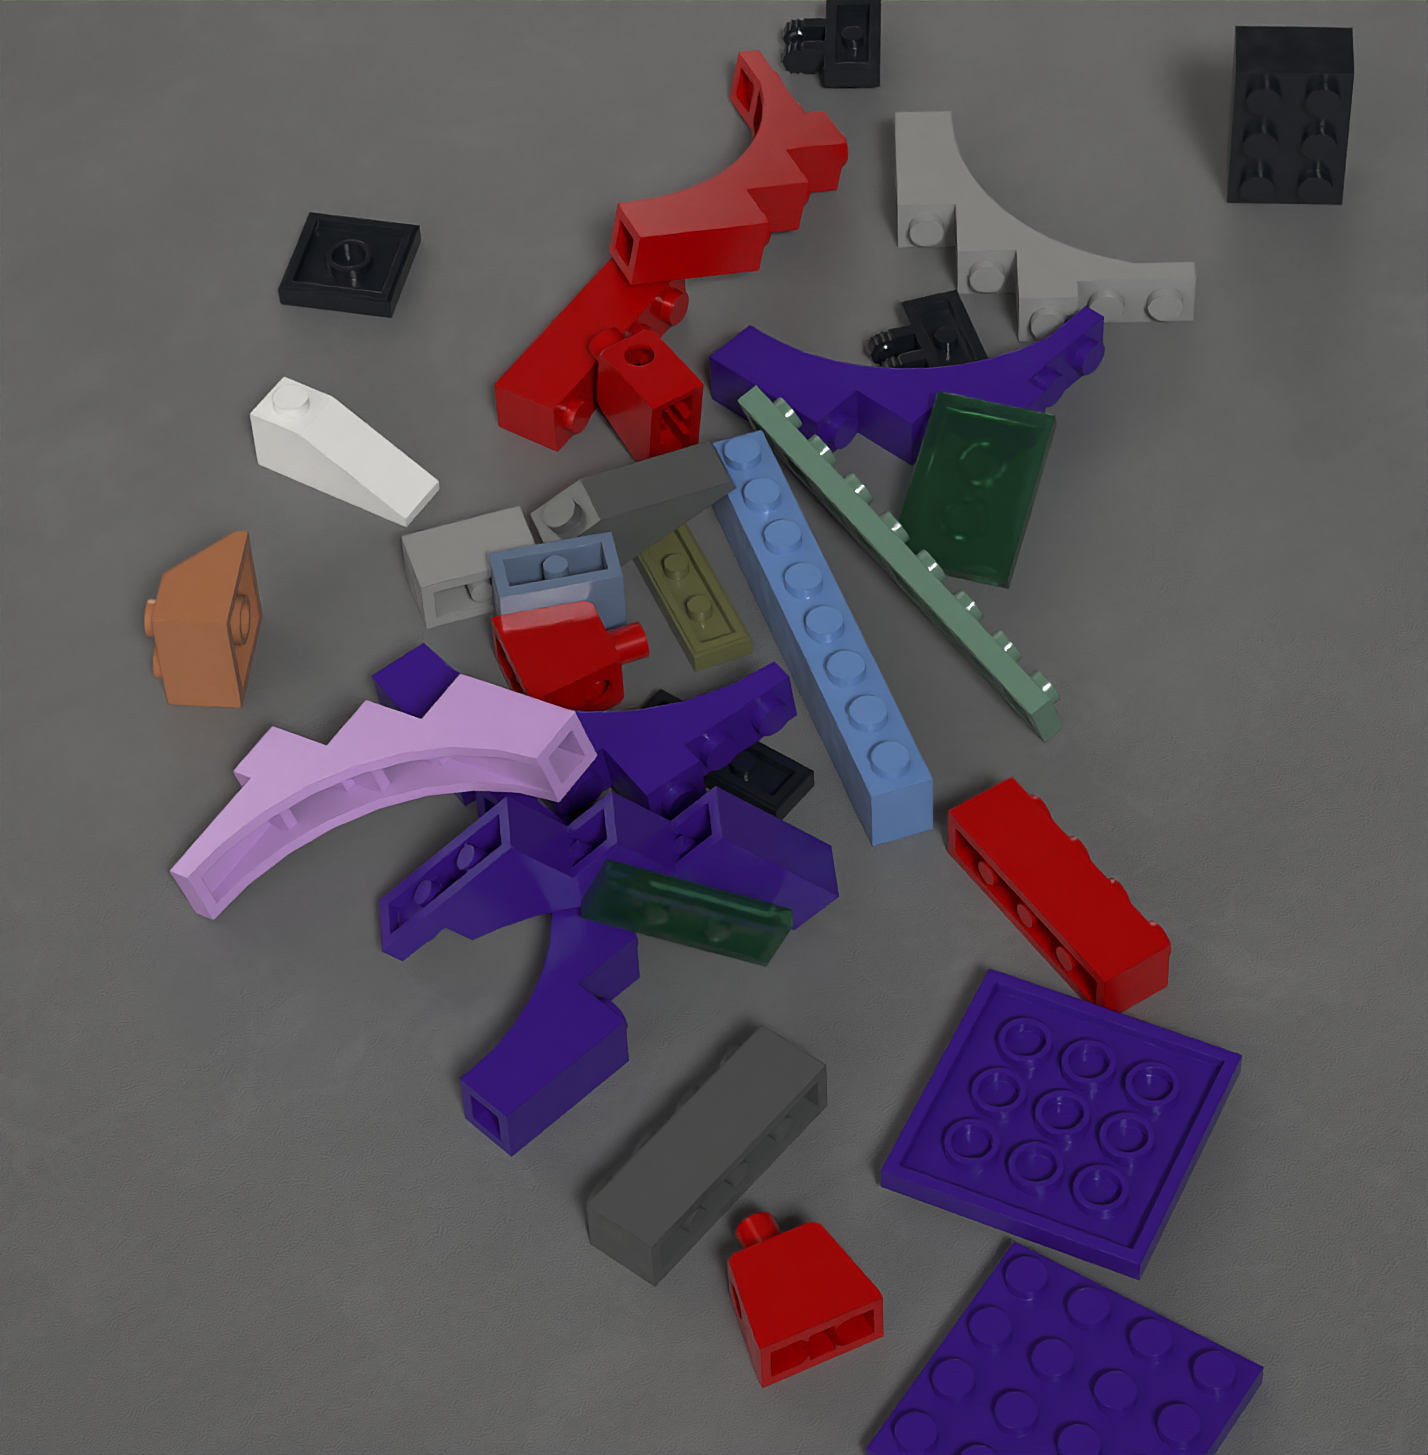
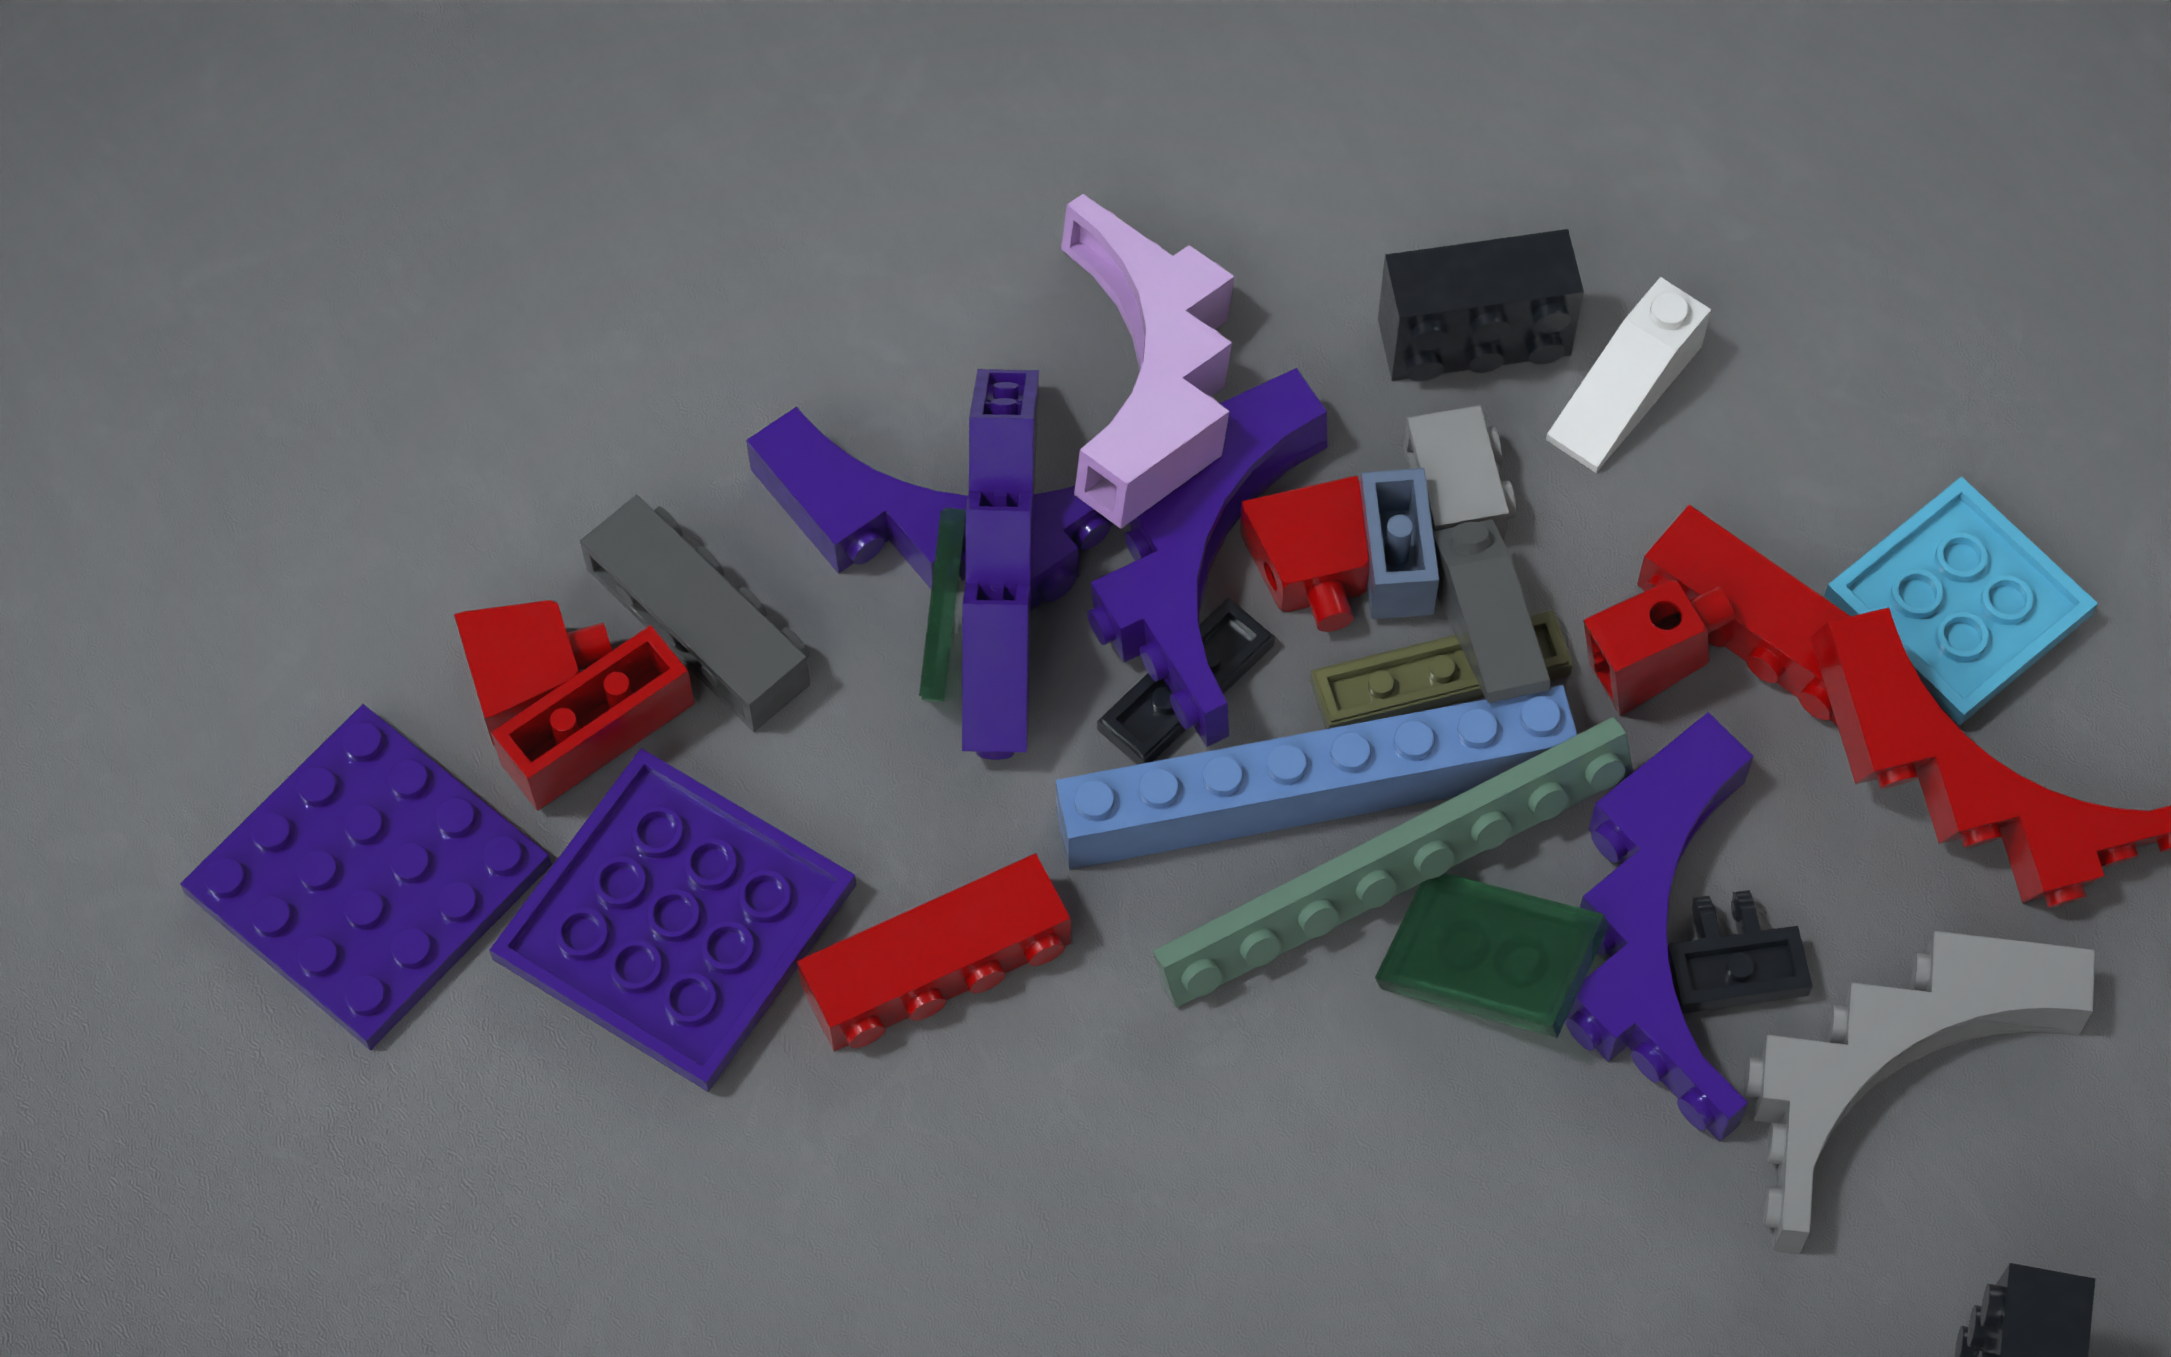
camera: 95 degrees right, 15 degrees up
(207, 625) = (1374, 216): nougat slope -> none
(291, 546) = (1479, 305): none -> black brick
(350, 265) = (1932, 408): black tile -> none
(539, 226) = (1965, 597): none -> medium azure plate
(869, 1210) = (593, 717): none -> red brick

